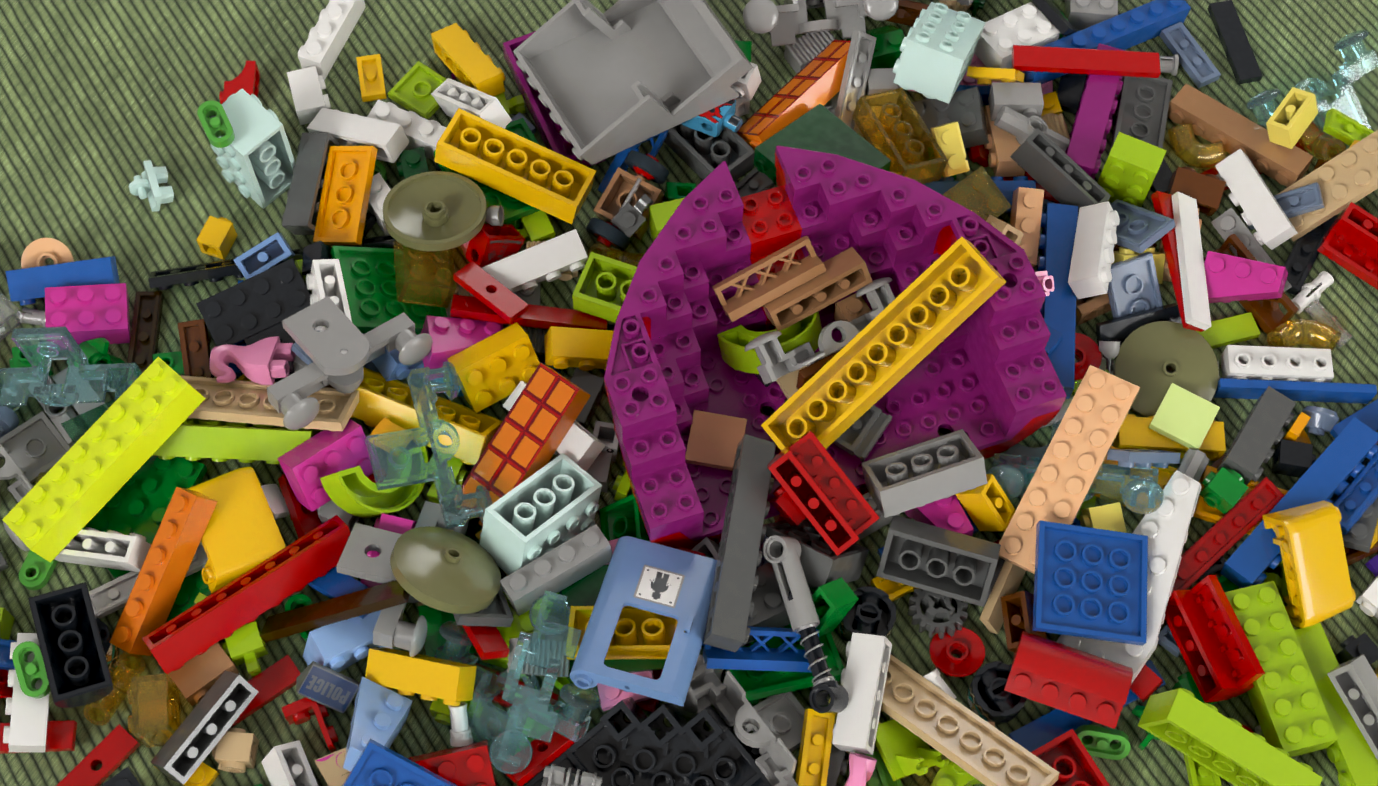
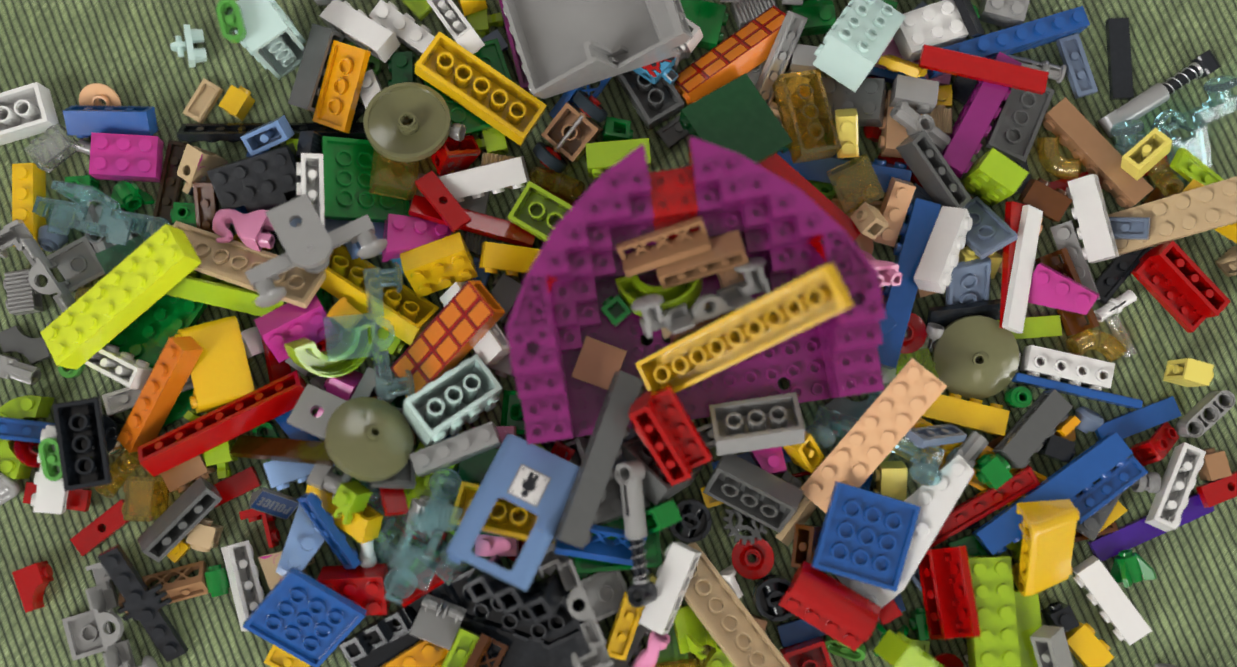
camera: 15 degrees right, 20 degrees up
(173, 244) = (203, 101): none -> tan tile
(176, 306) = (195, 165): none -> tan torso
(408, 699) = (333, 536): none -> blue plate
(433, 645) = (350, 498): none -> lime brick
(630, 218) = (569, 149): dark grey plate -> none
(725, 372) = (615, 310): none -> green brick
(769, 68) = (710, 20): none -> green brick
(864, 433) = (717, 383): dark grey plate -> none
(1184, 417) = (978, 403): yellowish green tile -> none
(1231, 407) = (1018, 397): none -> green brick
(1289, 67) = (1159, 92): none -> piece

